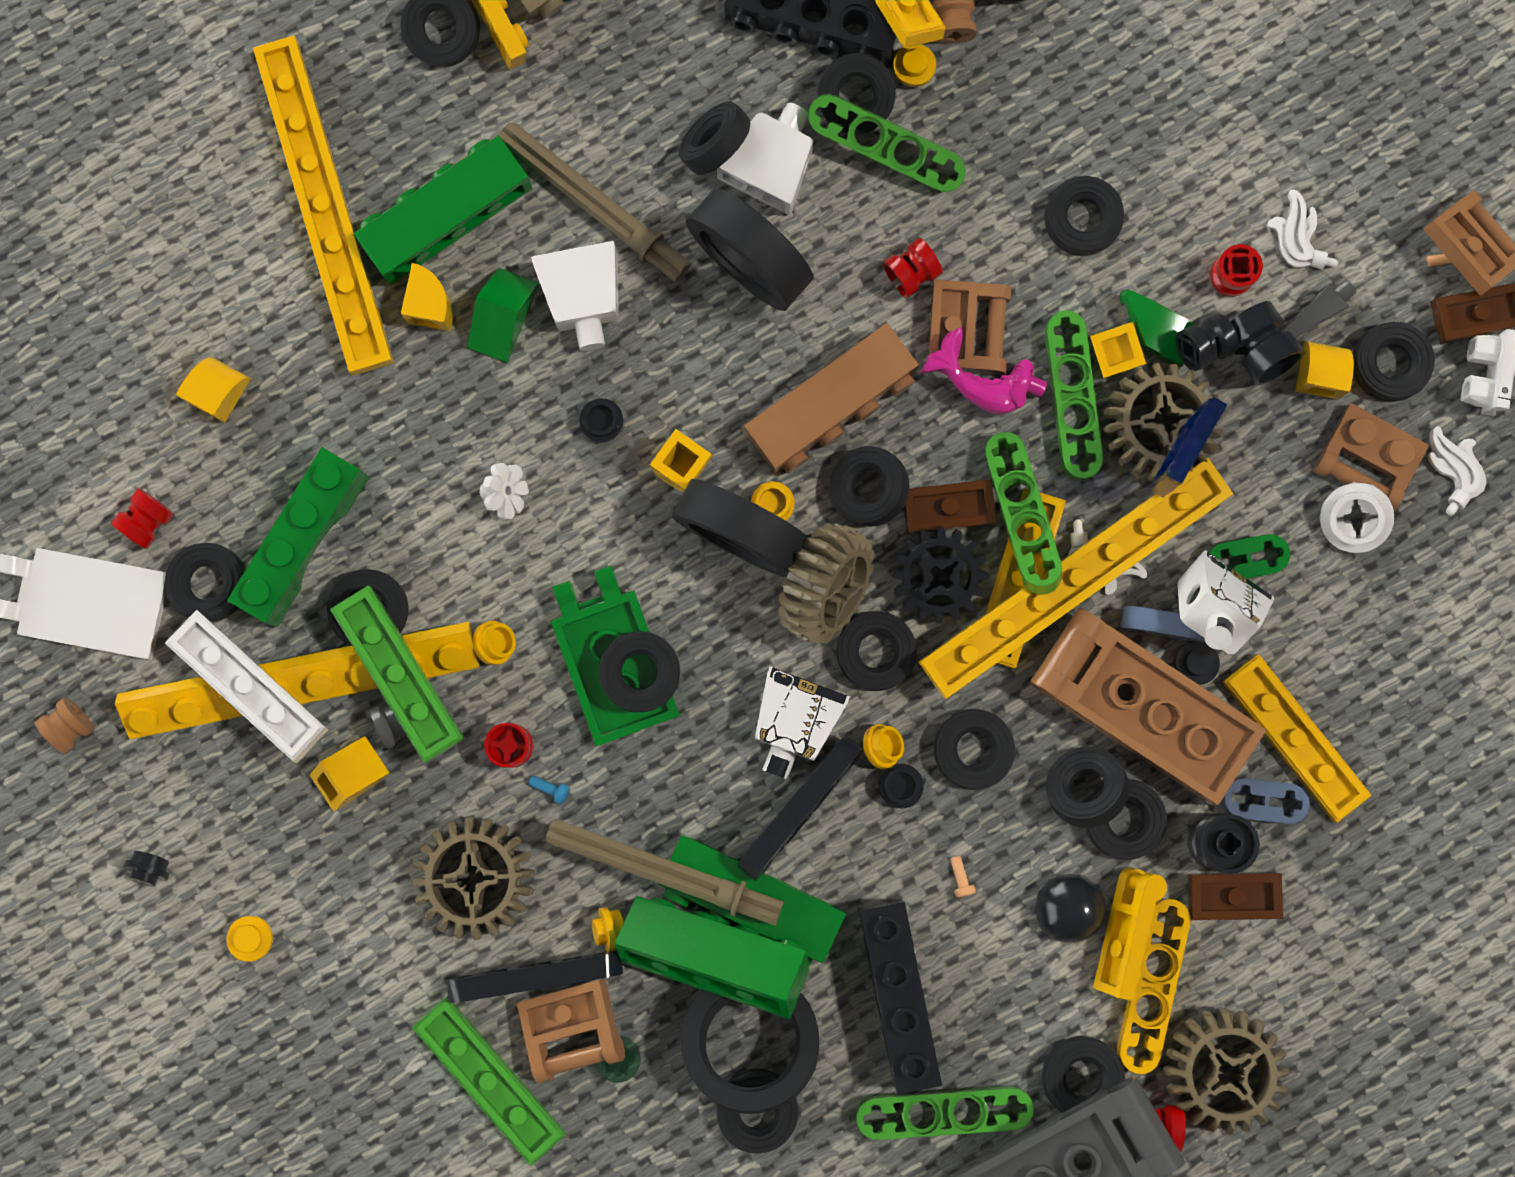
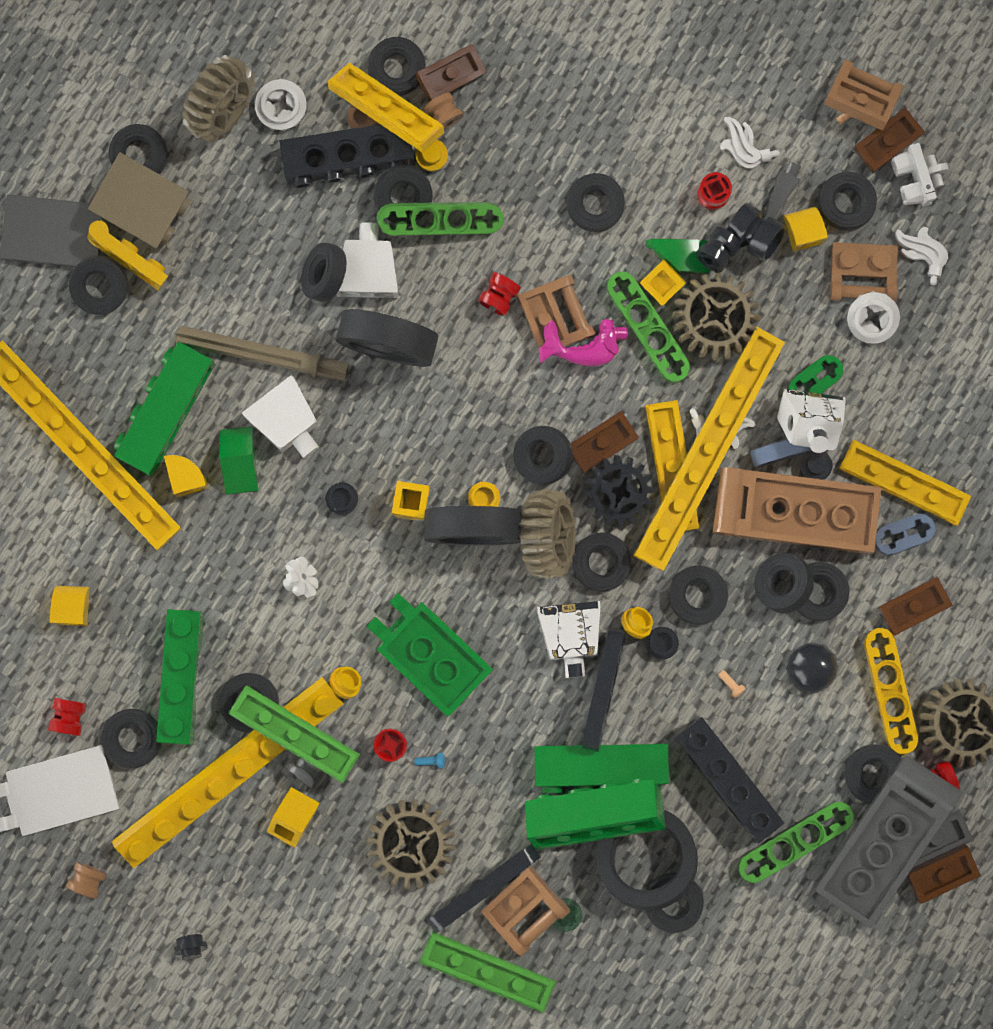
camera: 30 degrees left, 0 degrees up
(246, 686) = (198, 792): white tile -> none
(249, 938) = (282, 958): yellow plate -> none
(607, 928) = (516, 832): yellow plate -> none
(639, 699) = (473, 657): black tyre -> none
(666, 872) = (536, 775): dark tan axle -> none
(831, 399) = (489, 408): medium nougat brick -> none
(1023, 512) = (653, 422): bright green beam -> none
(1128, 932) = (857, 664): yellow plate -> none
(1187, 447) = (739, 329): clear blue tile -> none
(1223, 843) = (889, 575): black wheel -> none

